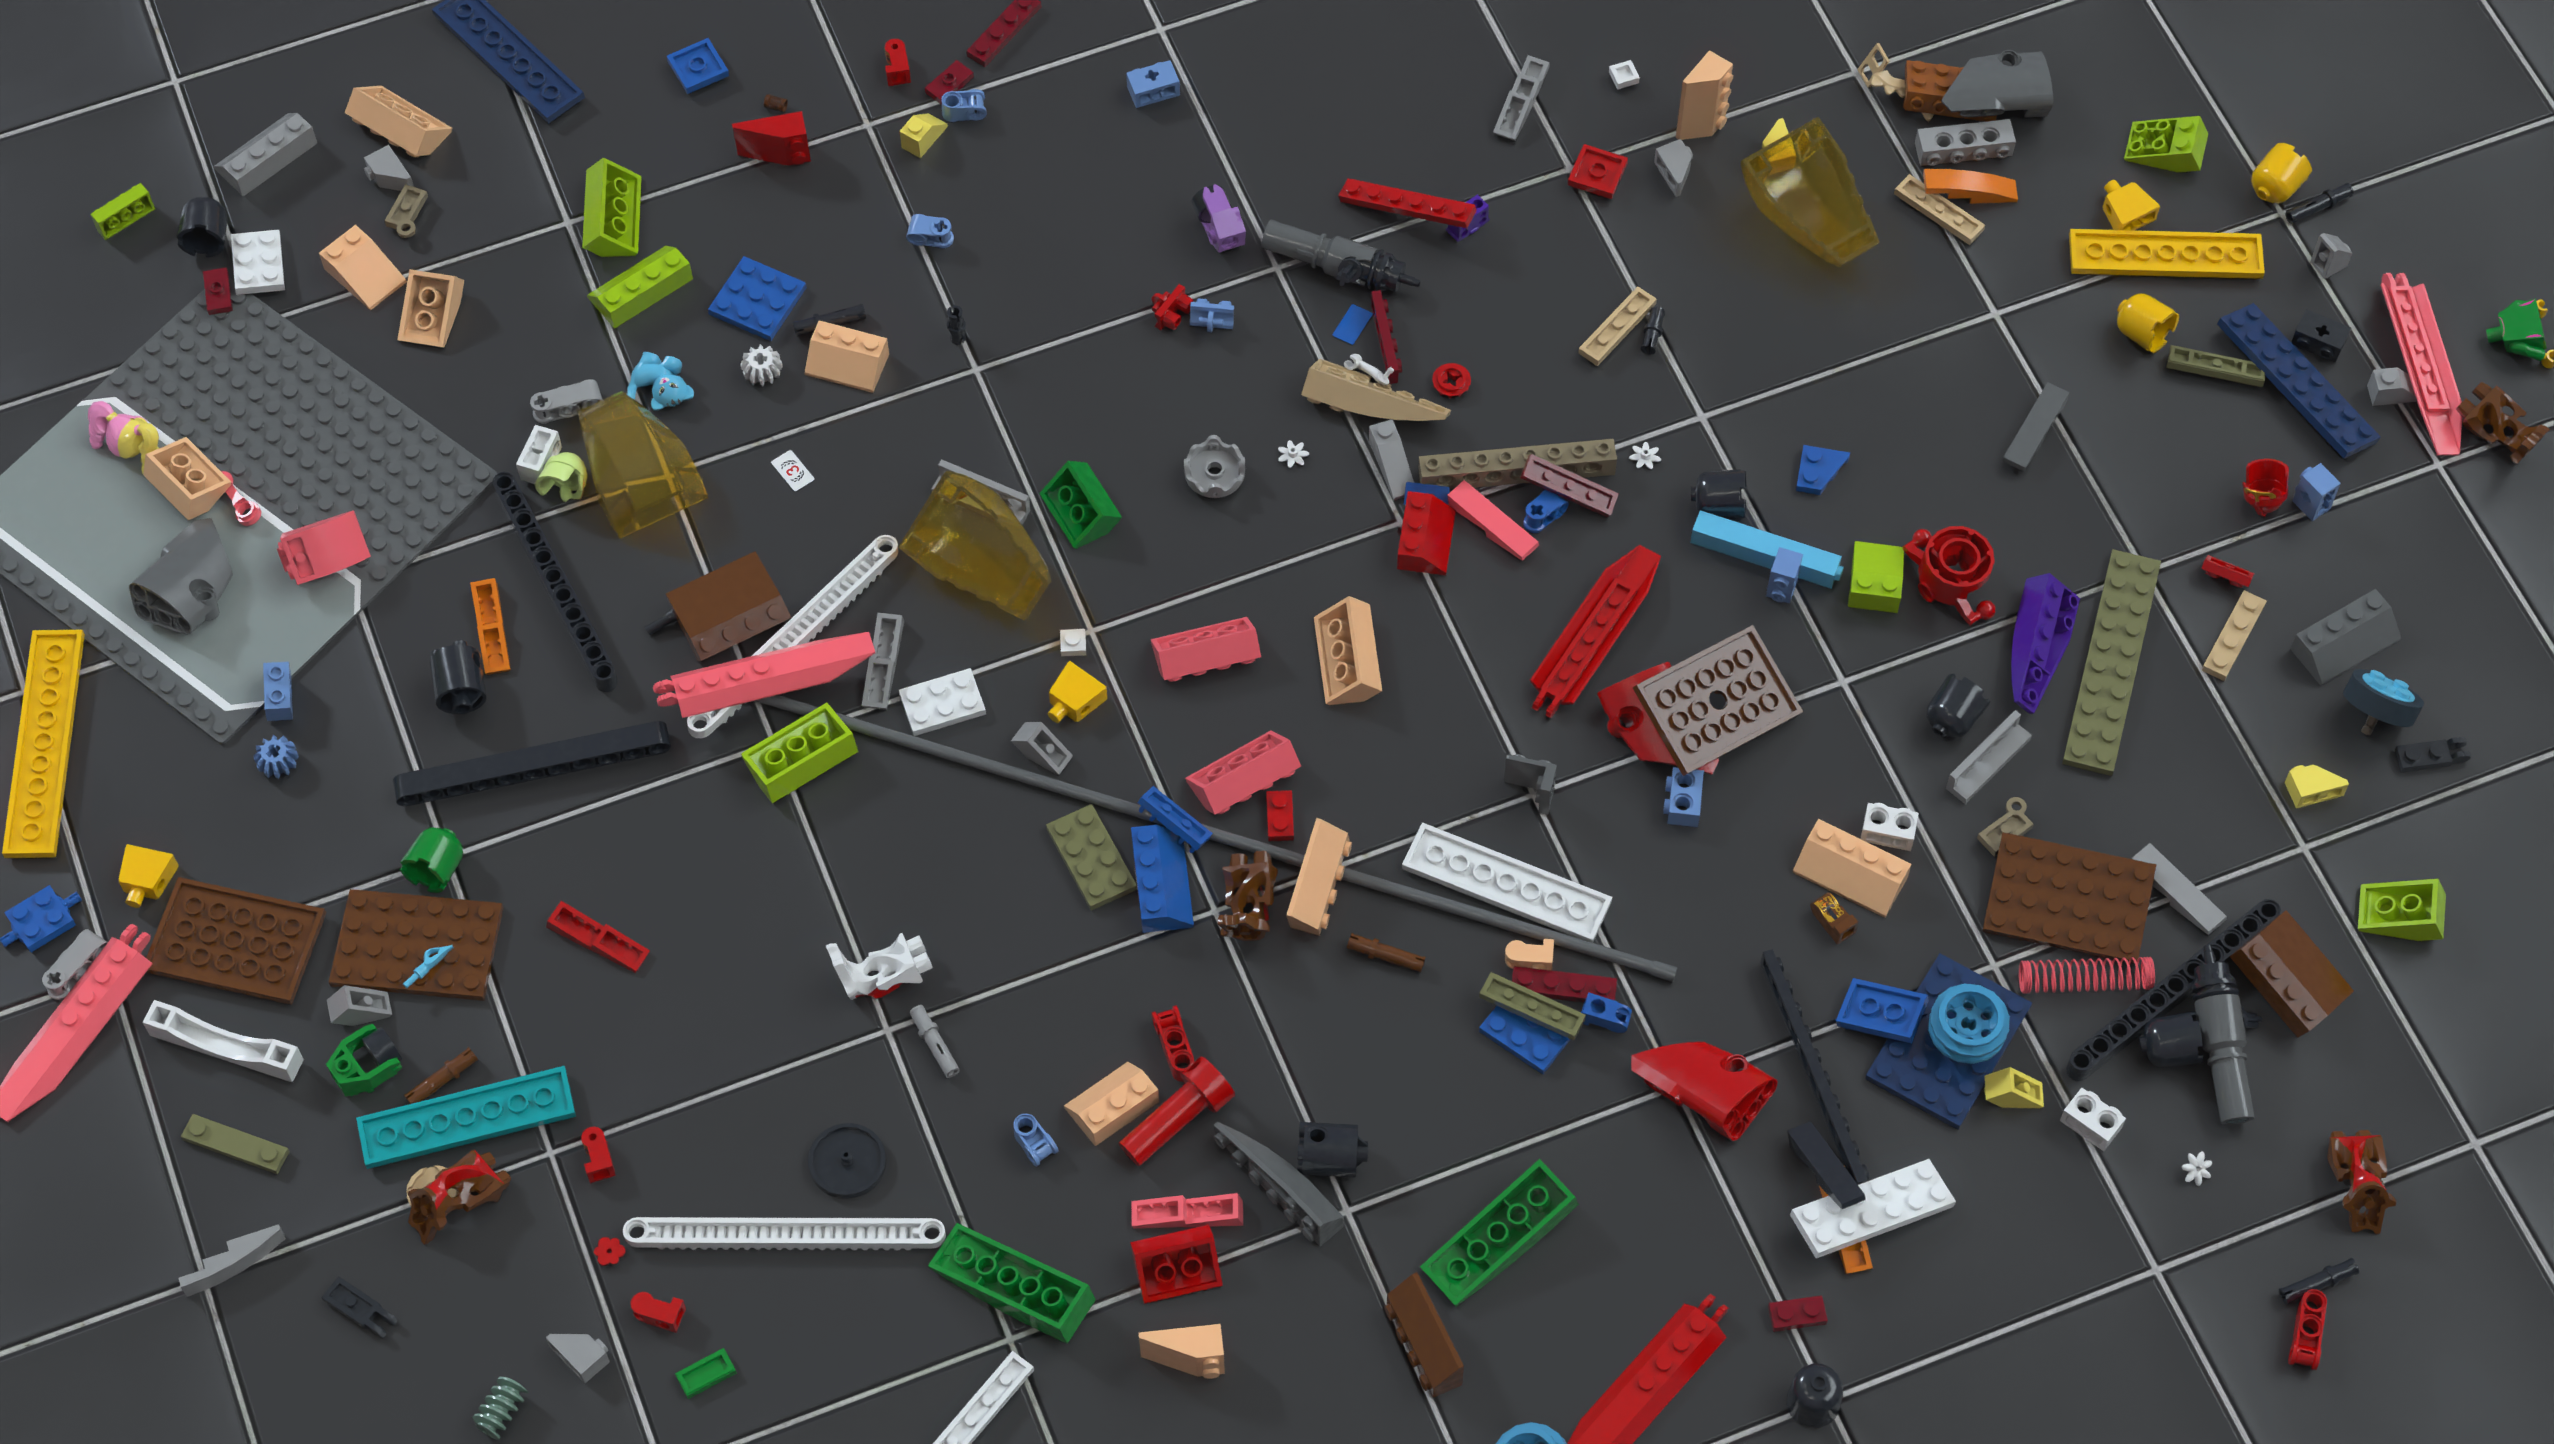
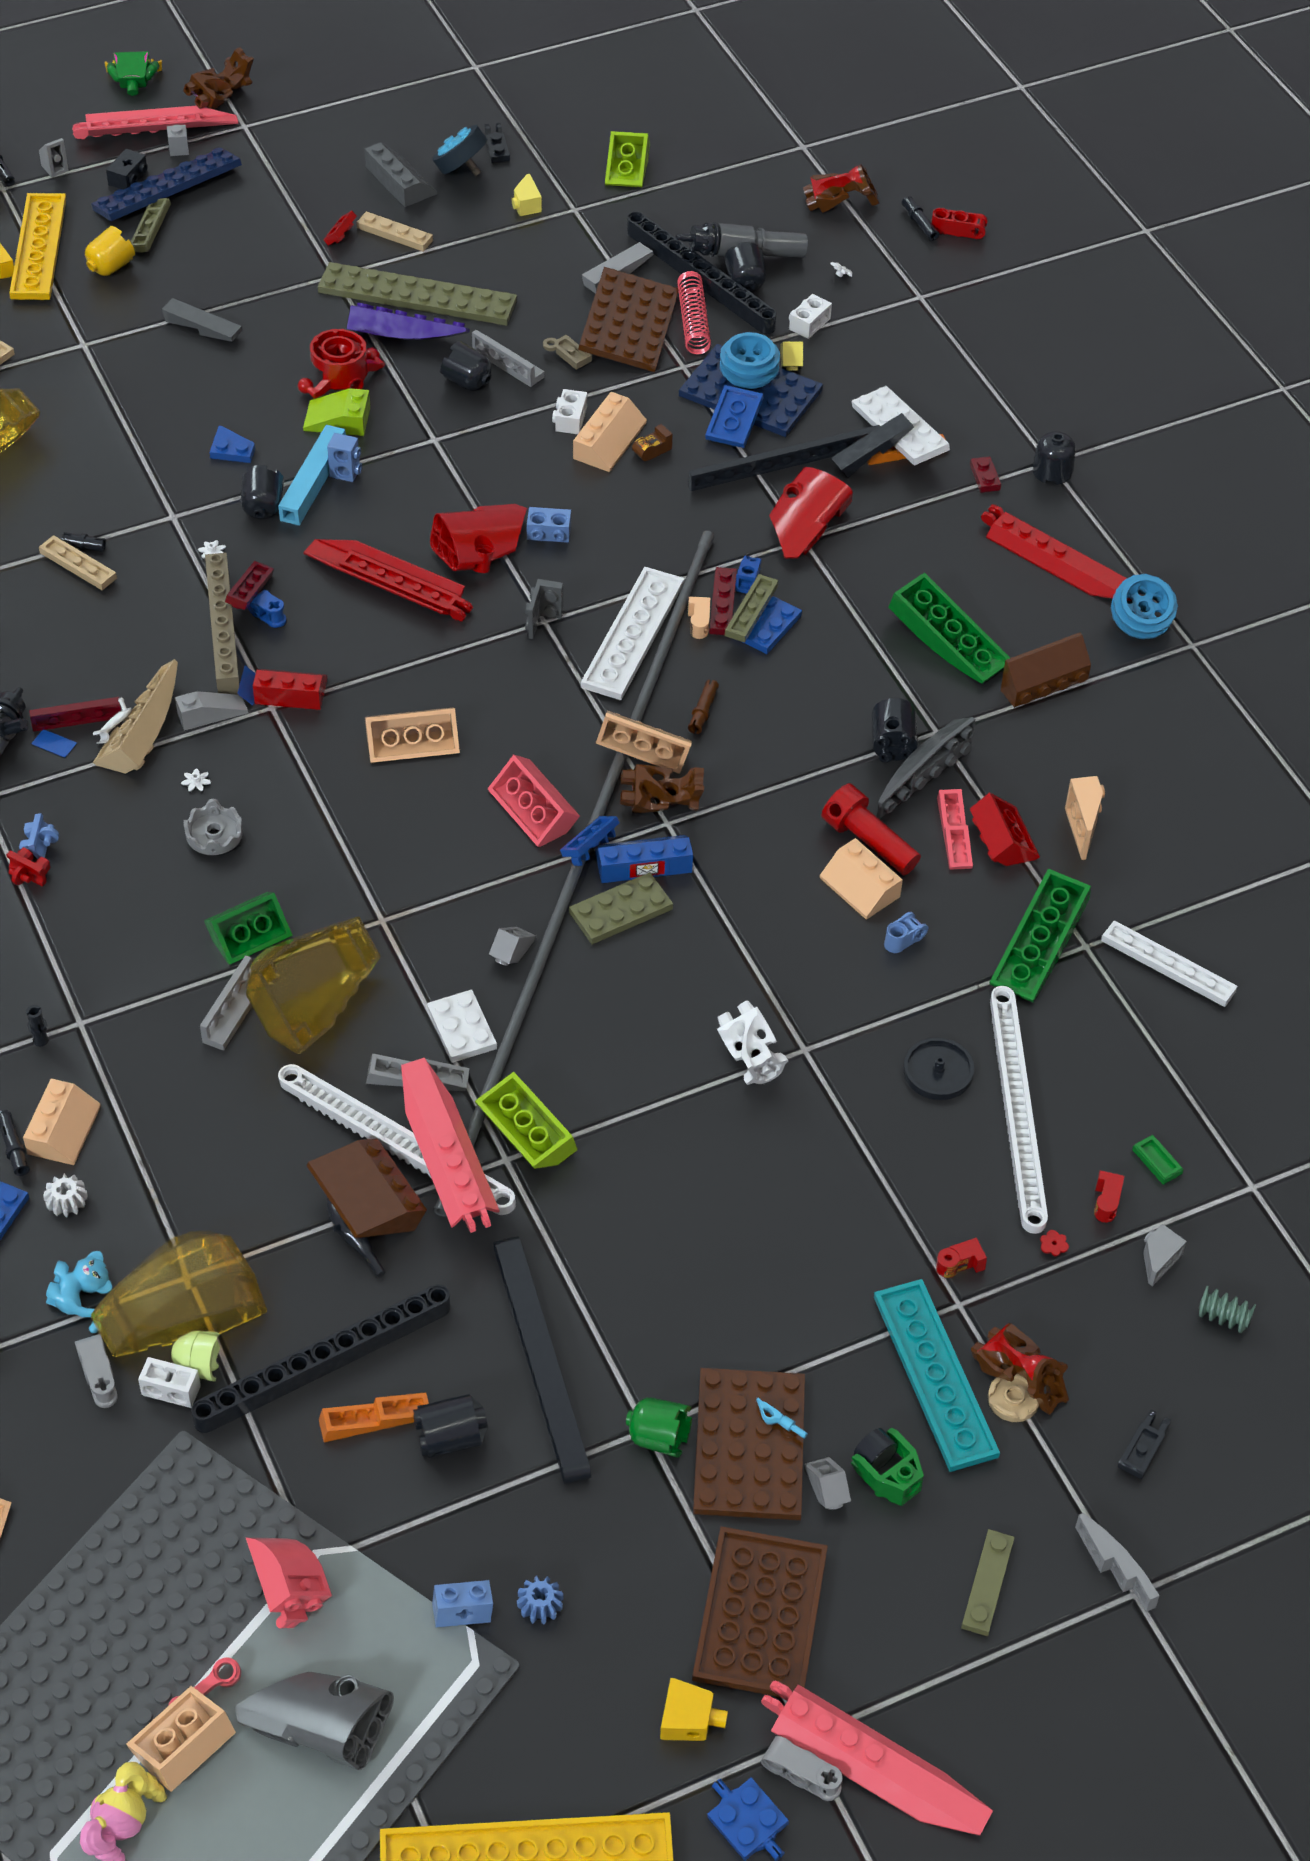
camera: 95 degrees left, 10 degrees down
(190, 1032) = (882, 1600): white arch -> none
(449, 1071) = (887, 1393): reddish brown pin -> none
(596, 937) = (729, 1286): red slope -> none
(792, 470) = (191, 1166): white sticker -> none
(929, 1032) = (807, 1013): light grey pin -> none
(1073, 642) = (396, 930): white plate -> none
(1075, 694) = (455, 922): yellow torso -> none
(1169, 1028) = (802, 838): red piece -> none
(1206, 649) = (405, 830): coral slope -> none
(1280, 815) = (574, 779): red plate -> none
(1455, 372) = (130, 665): red gear -> none
(1496, 524) = (280, 639): coral slope -> none
(1752, 691) = (483, 495): plate -> none
(2266, 485) = (268, 197): red helmet -> none
(2292, 974) = (692, 208): reddish brown slope -> none
(2316, 491) = (275, 174): medium blue brick -> none

